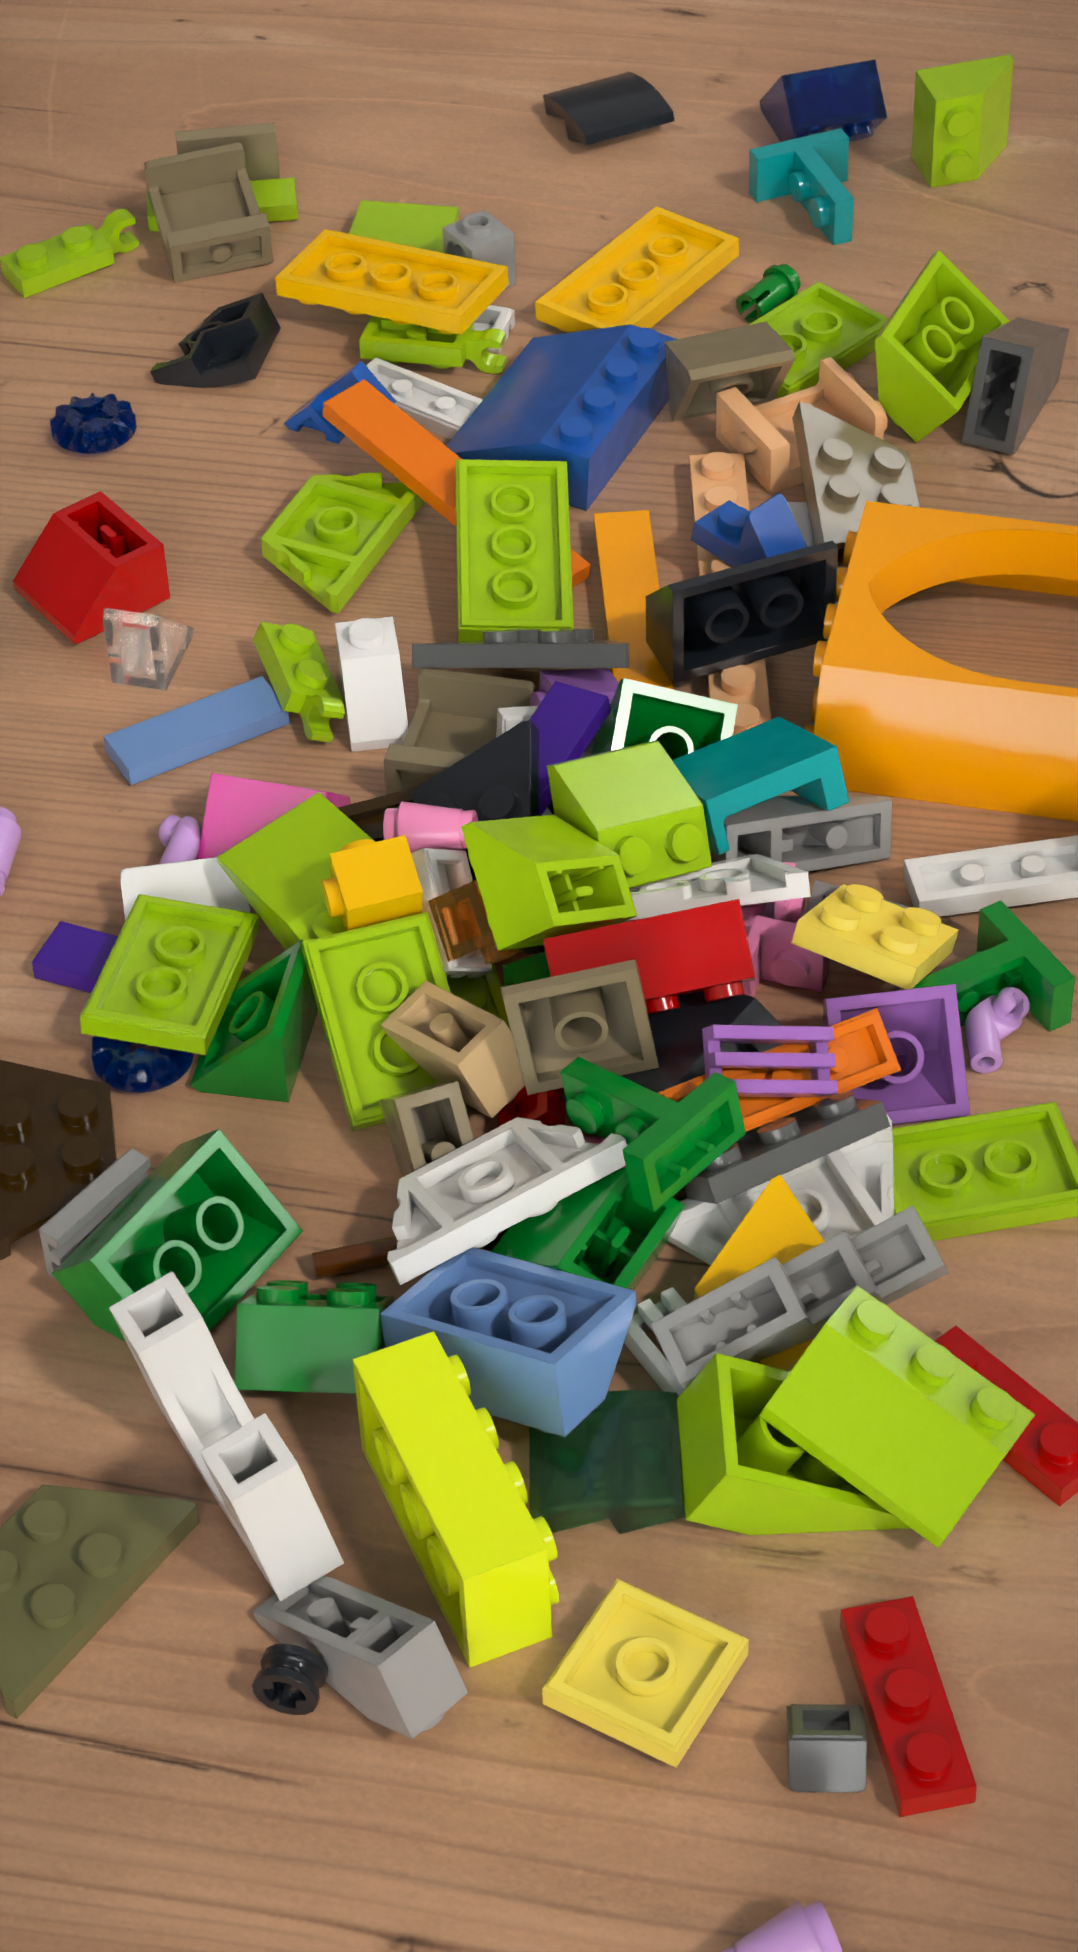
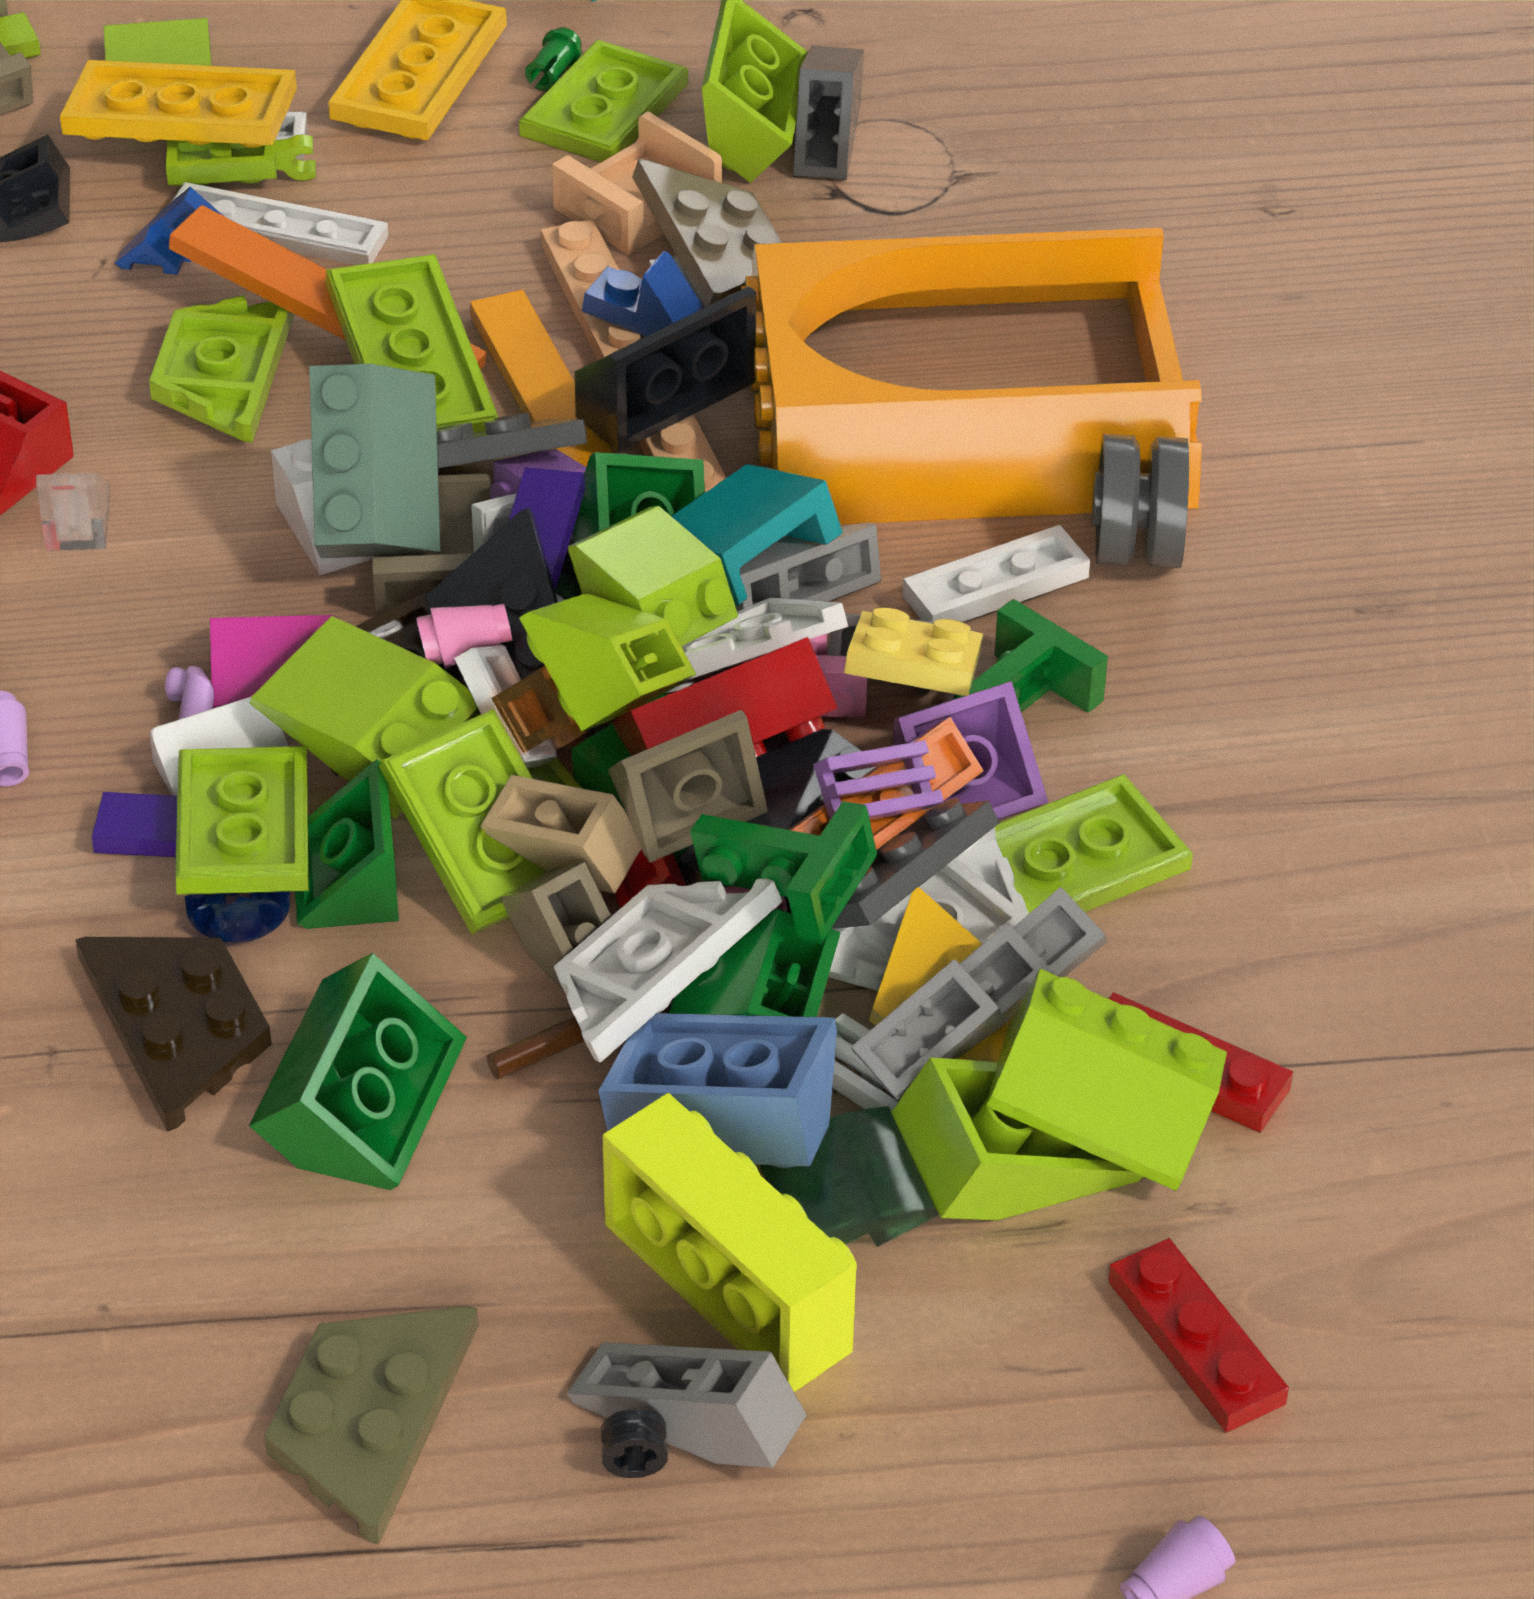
camera: 20 degrees left, 0 degrees up
(91, 1207) = (260, 1060): light grey tile -> none
(195, 730) = (157, 582): medium blue tile -> none
(235, 1454) = (550, 1277): white arch -> none
(300, 676) = (245, 510): lime plate -> none
(306, 1338) = (528, 1132): green slope -> none
(372, 883) = (436, 690): yellow brick -> none
(416, 649) = (374, 461): none -> sand green slope
(482, 239) = (252, 46): light grey brick -> none
(575, 402) = (405, 193): blue slope -> none
(646, 1672) = (957, 1360): light yellow plate -> none
(739, 357) = (546, 131): dark tan slope -> none
(826, 1748) = (1141, 1388): dark grey slope -> none
(990, 1024) = (1040, 711): lavender arm -> none

